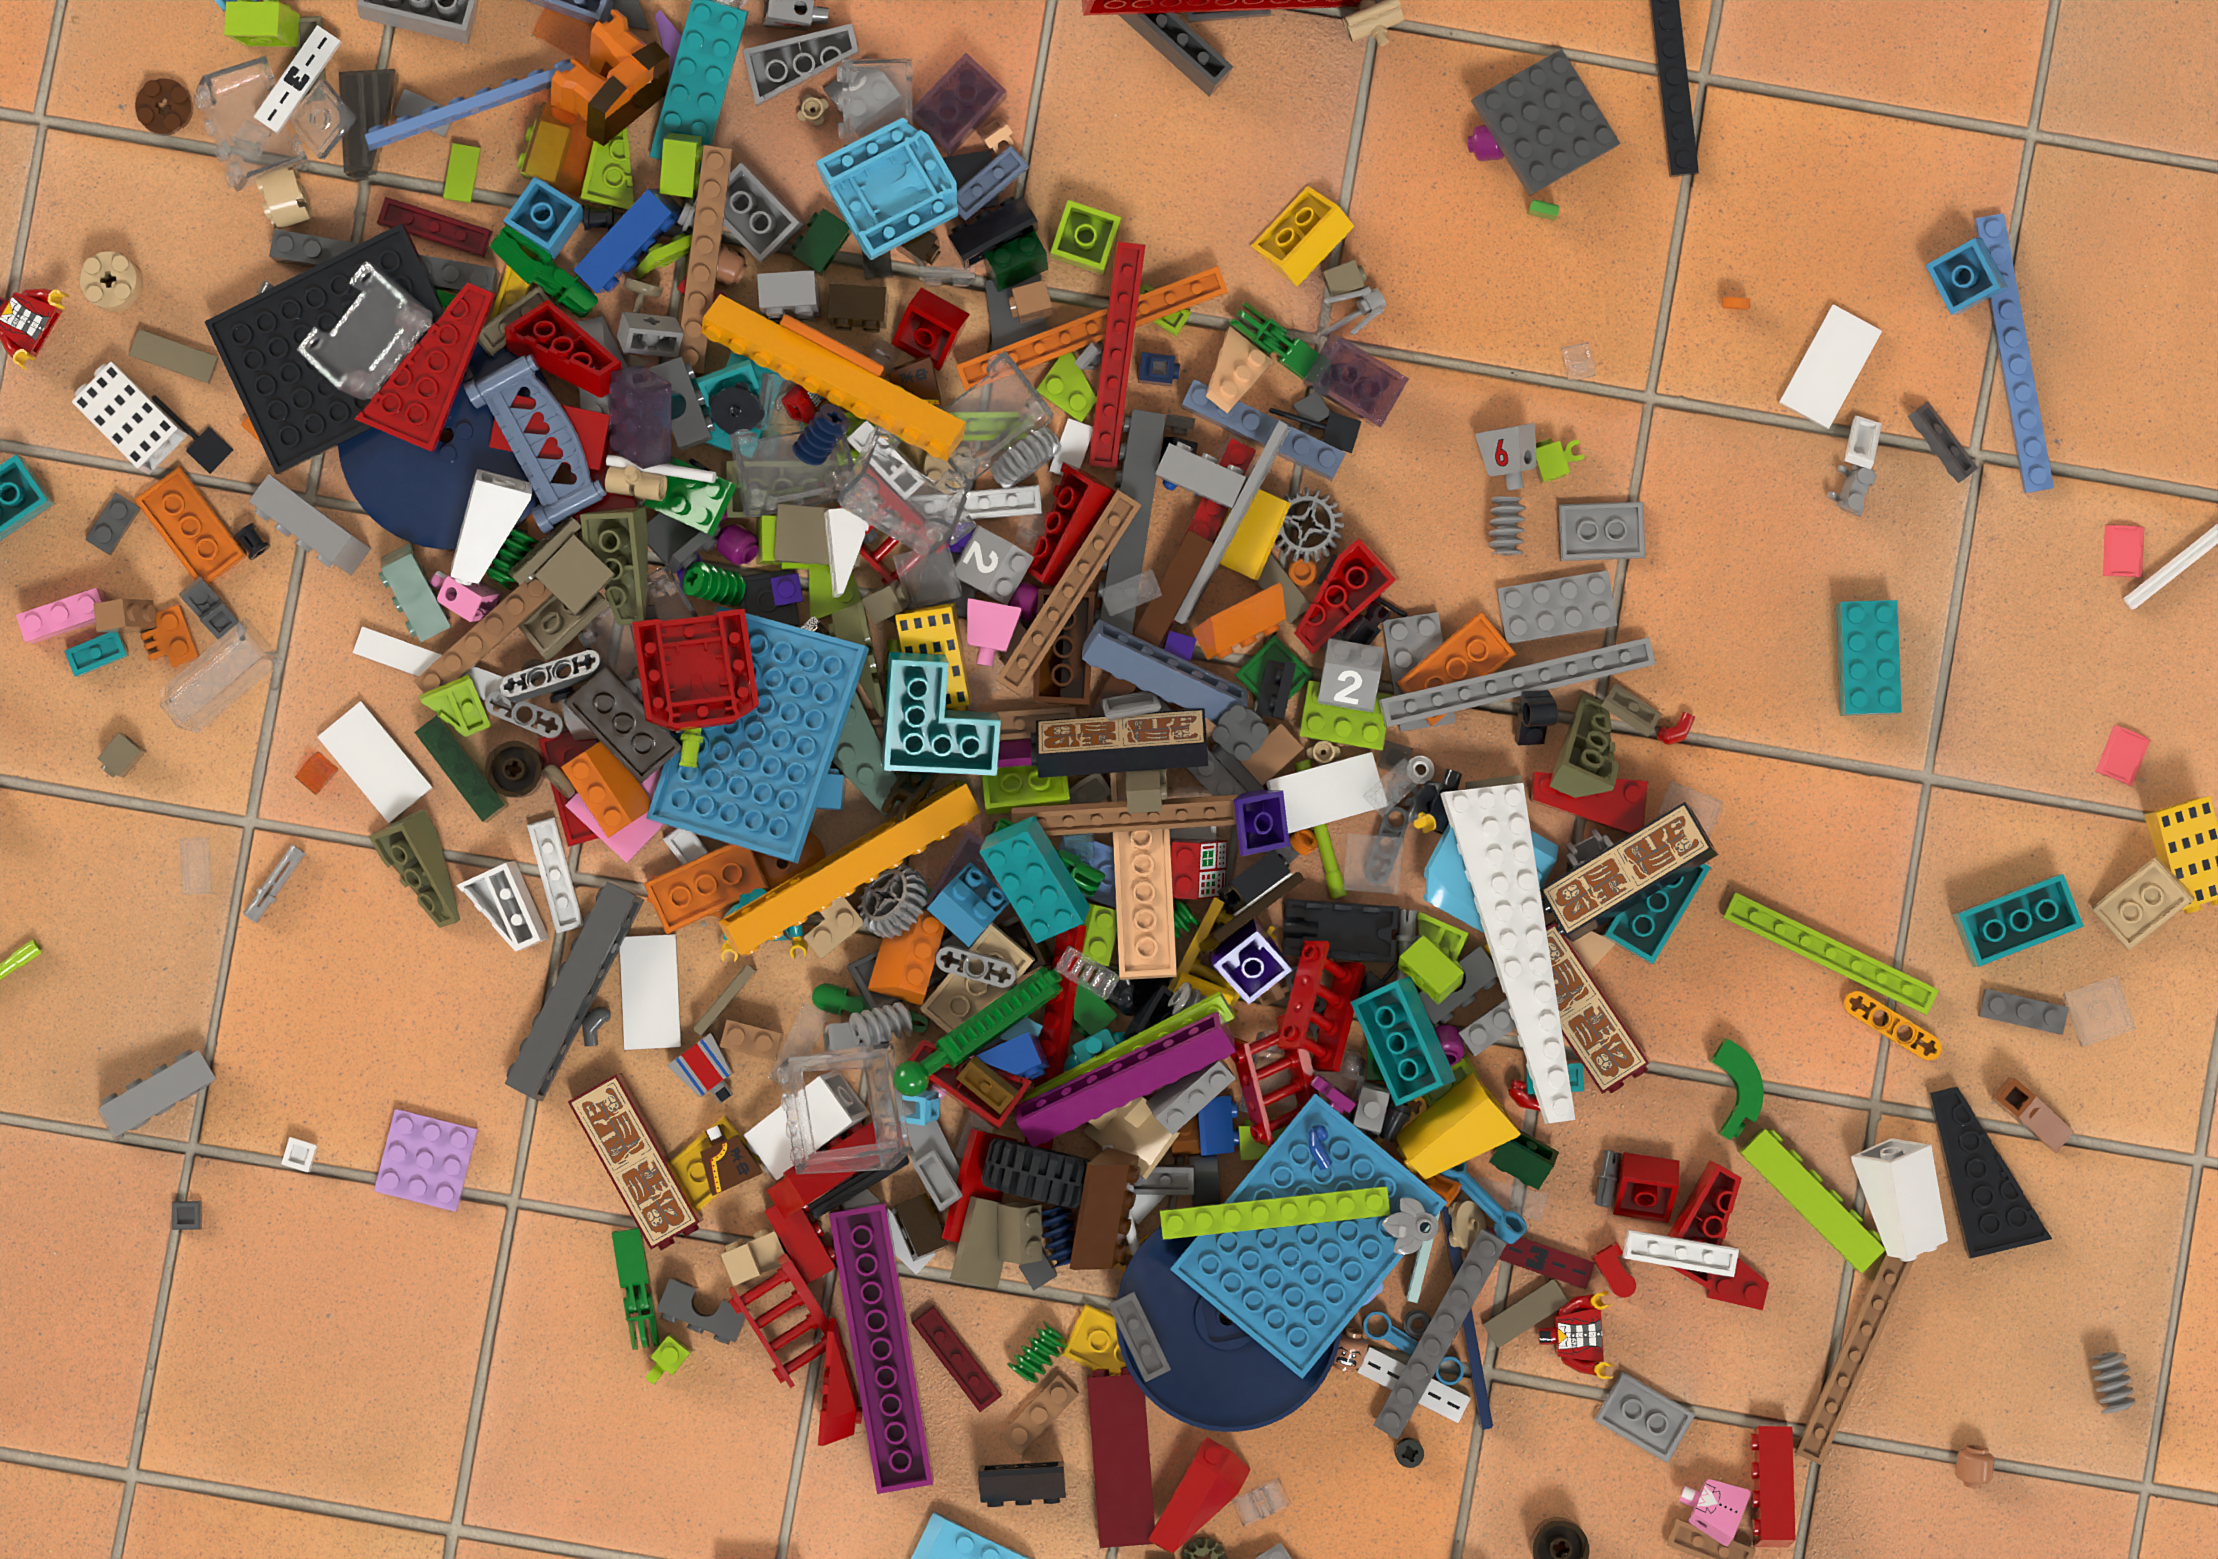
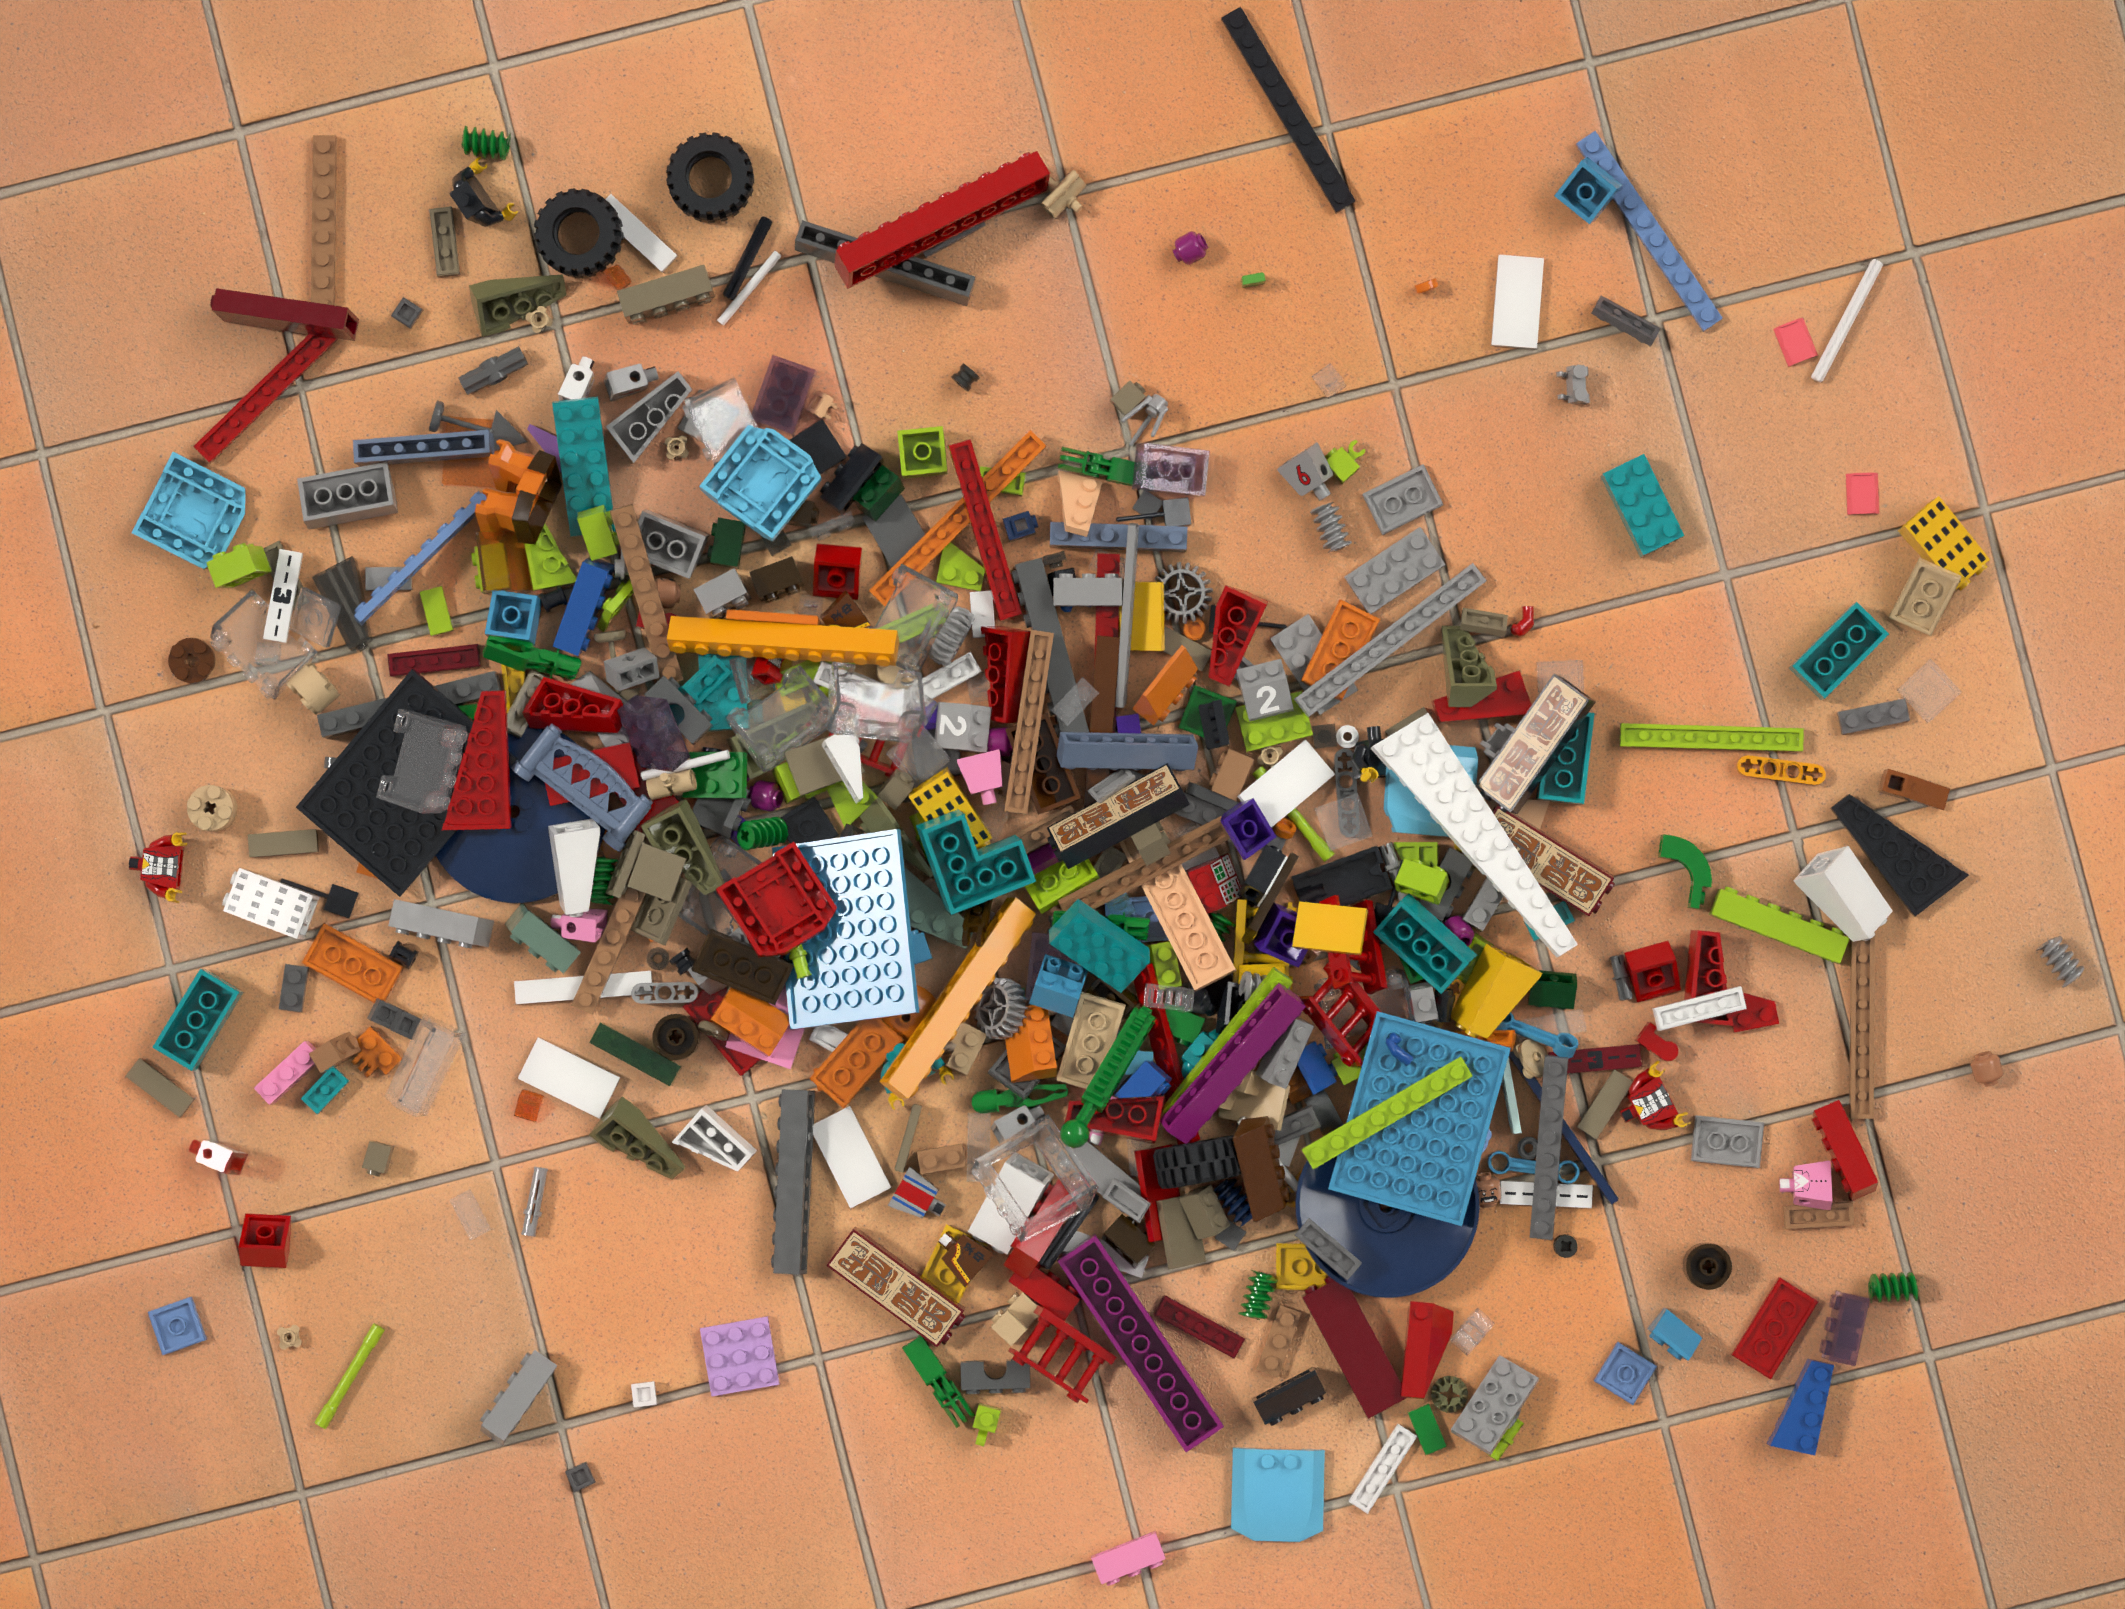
camera: 20 degrees left, 0 degrees up
(458, 705) = (613, 1008): lime wing -> none
(552, 672) = (675, 957): dark grey beam -> none
(555, 875) = (741, 1101): white tile -> none
(592, 1023) = (817, 1200): dark grey arm -> none
(736, 408) = (721, 695): black piece -> none
(787, 590) = (818, 813): dark purple plate -> none
(821, 435) = (793, 687): dark blue piece -> none
(840, 1397) = (1126, 1393): red wedge -> none
(879, 1022) = (1032, 1102): light grey piece -> none
(926, 1108) = (1094, 1151): medium azure window -> none
(987, 1084) = (1132, 1113): pearl gold plate -> none
(989, 182) = (833, 442): sand blue tile -> none
(999, 964) = (1079, 1037): light grey beam -> none
(1030, 302) = (904, 519): medium nougat brick -> none
(1090, 357) = (966, 539): light grey tile -> none
(1171, 175) = (965, 377): none -> pearl dark grey wheel
(1240, 732) = (1202, 768): dark grey piece -> none
(1303, 235) = (1083, 379): yellow slope -> none
(1303, 976) = (1330, 928): none -> yellow tile
(1339, 1100) = (1396, 1007): magenta plate -> none
(1364, 628) = (1260, 650): black plate -> none
(1392, 787) = (1333, 758): clear plate -> none
(1406, 1226) = (1488, 1079): light grey plate -> none
(1521, 1098) = (1531, 946): red arm -> none
(1535, 714) = (1414, 658): black plate -> none
(1545, 122) = (1225, 214): dark grey plate -> none
(1863, 442) = (1566, 347): white tile -> none

